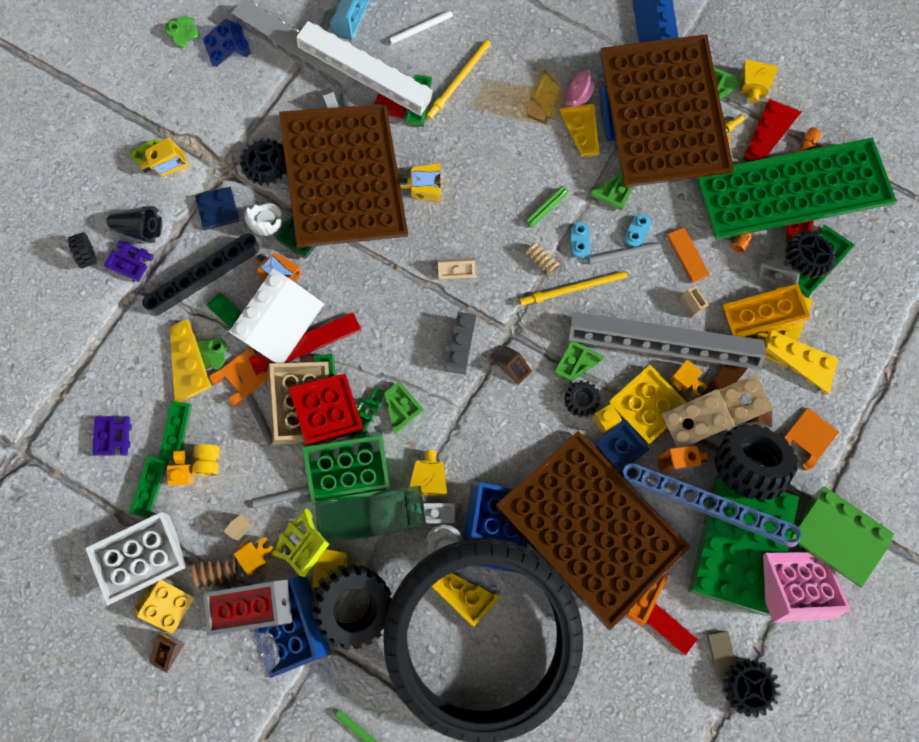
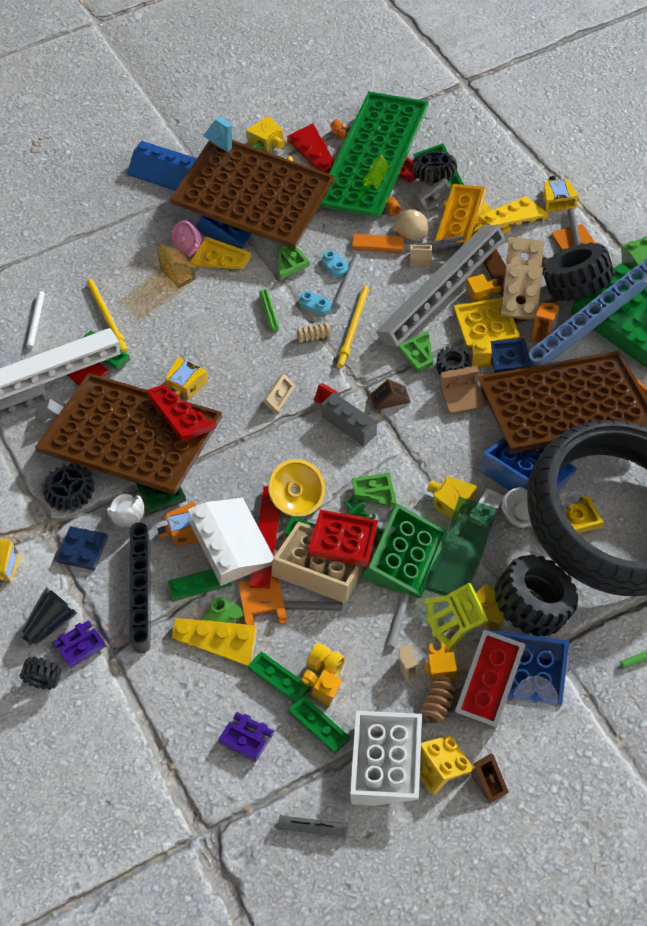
camera: 55 degrees left, 20 degrees down
(61, 540) = (320, 827): none -> dark grey pin
(349, 346) = (307, 483): none -> yellow dish
(377, 205) = (179, 414): none -> red wing
(477, 307) = (323, 392): none -> red tile
(552, 425) = (462, 390): none -> medium nougat bracket
(701, 43) = (220, 133): none -> medium azure wing
(720, 317) = (446, 243): none -> dark grey pin
(727, 273) = (411, 225): none -> tan piece
(768, 205) = (377, 172): none -> clear neon green hinge
(821, 429) = (573, 225): none -> dark grey bar
(861, 390) = (559, 195): none -> yellow torso

